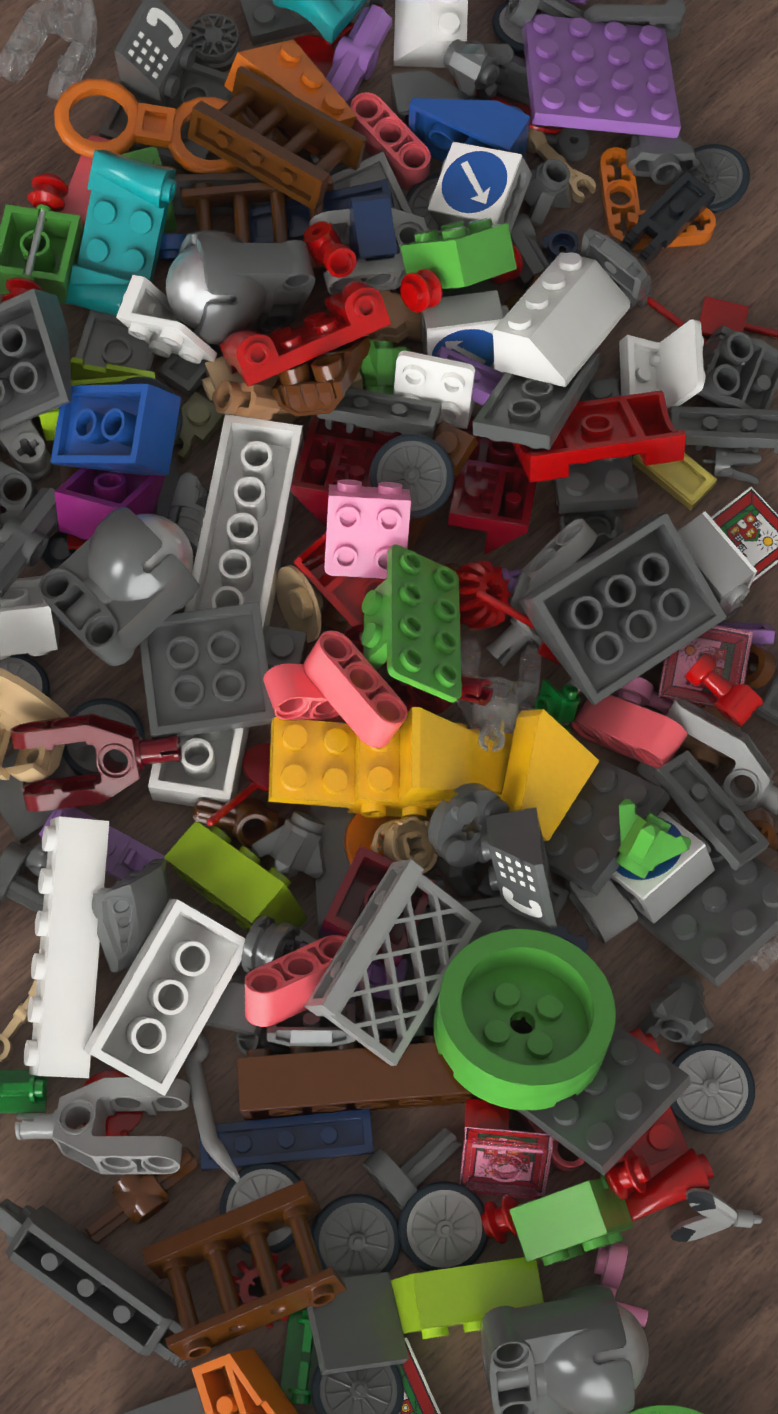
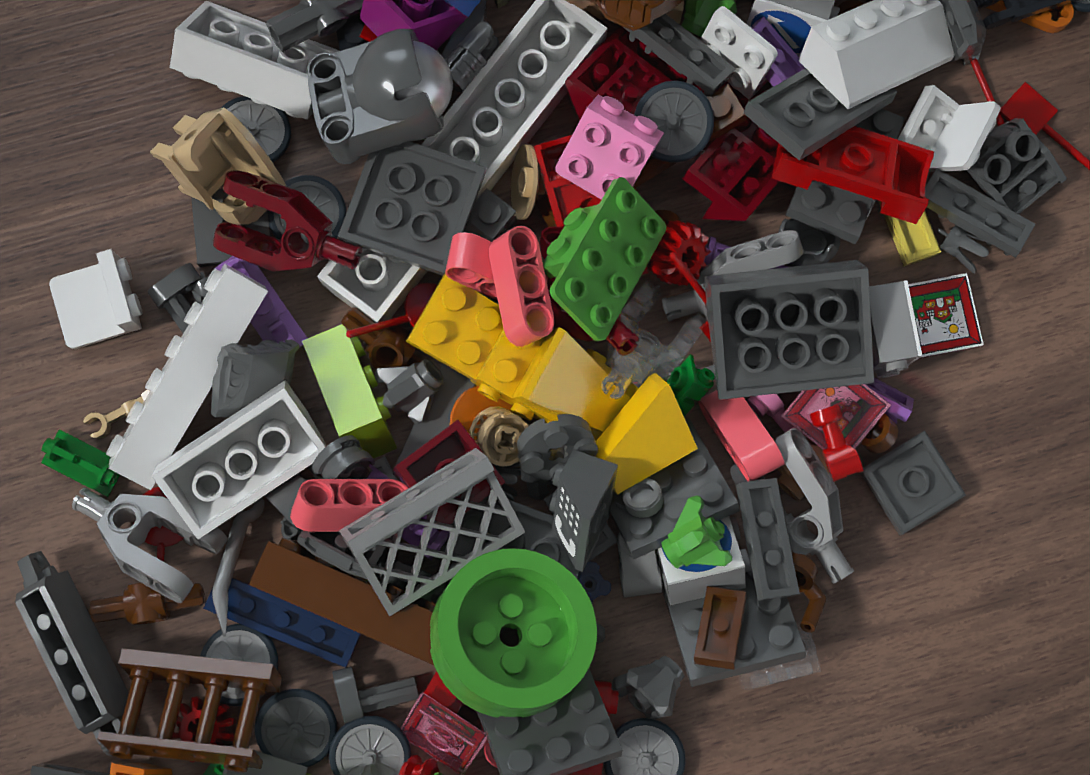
camera: 25 degrees right, 10 degrees up
(574, 833) = (643, 498): none -> light grey tile
(714, 914) = (720, 628): none -> reddish brown plate

